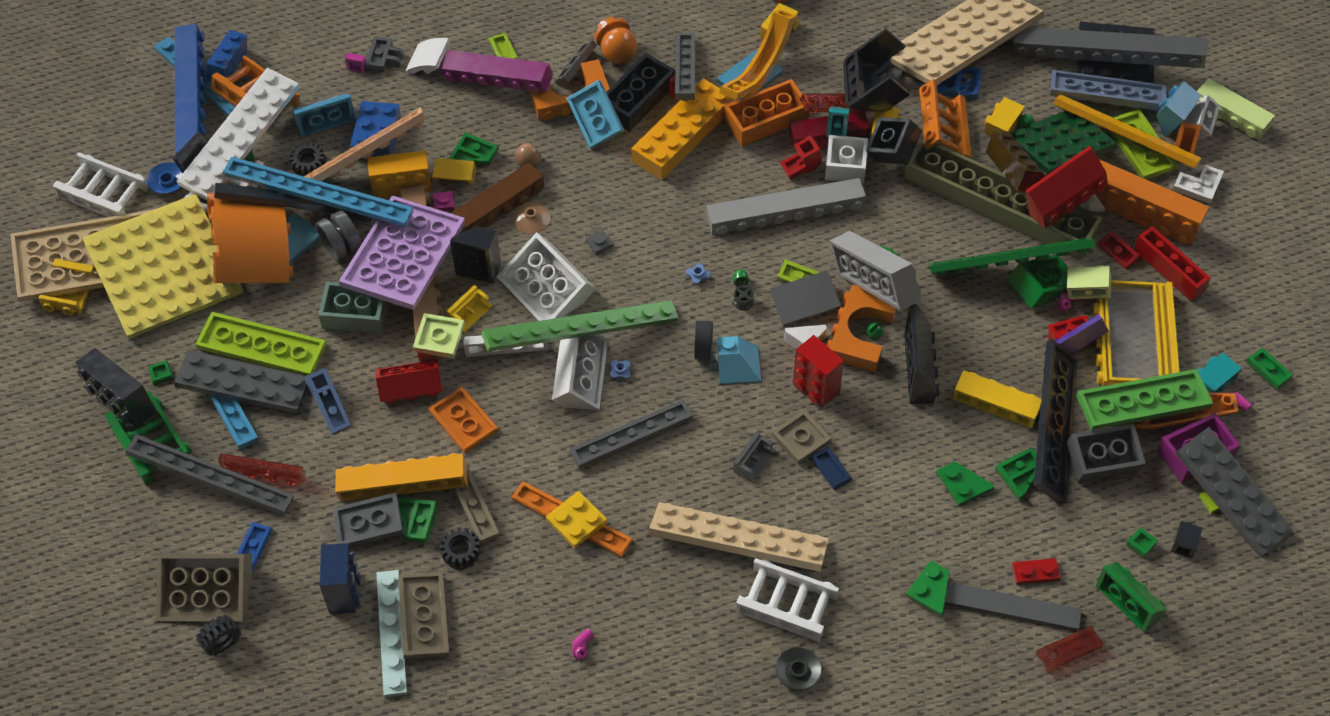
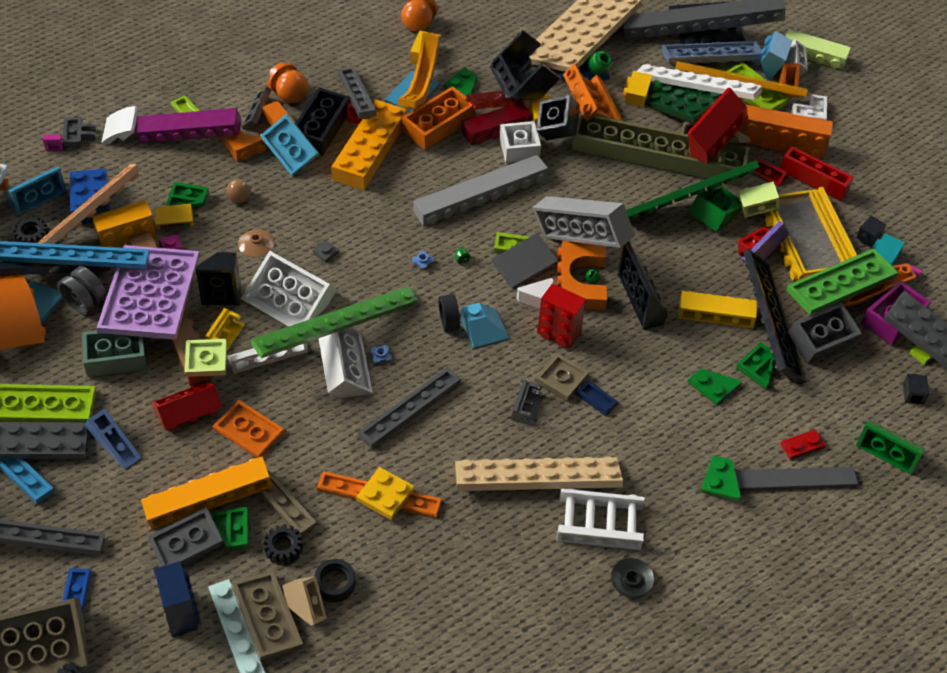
camera: 20 degrees left, 5 degrees down
(269, 470) = (66, 515): clear red plate -> none
(463, 609) = (305, 599): none -> tan slope
(501, 197) = (226, 228): reddish brown brick -> none
(504, 611) = (336, 565): none -> black tyre
(579, 644) = (424, 607): dark pink arm -> none
(743, 292) = (467, 268): pearl dark grey wheel -> none
(807, 158) = (485, 149): red brick -> none
(808, 74) = (462, 81): none -> green wing
(837, 121) = (505, 111): teal slope -> none
(968, 81) = (600, 63): none -> green head
(1013, 161) = (663, 116): dark brown slope -> none
(1064, 302) = (740, 220): dark pink arm -> none
(1070, 648) = (857, 502): clear red plate -> none
(1075, 127) = (701, 82): none -> white plate
(1141, 542) = (880, 400): green plate -> none
(1209, 345) = (871, 231): none -> black brick
(1269, 368) = (923, 239): green plate -> none

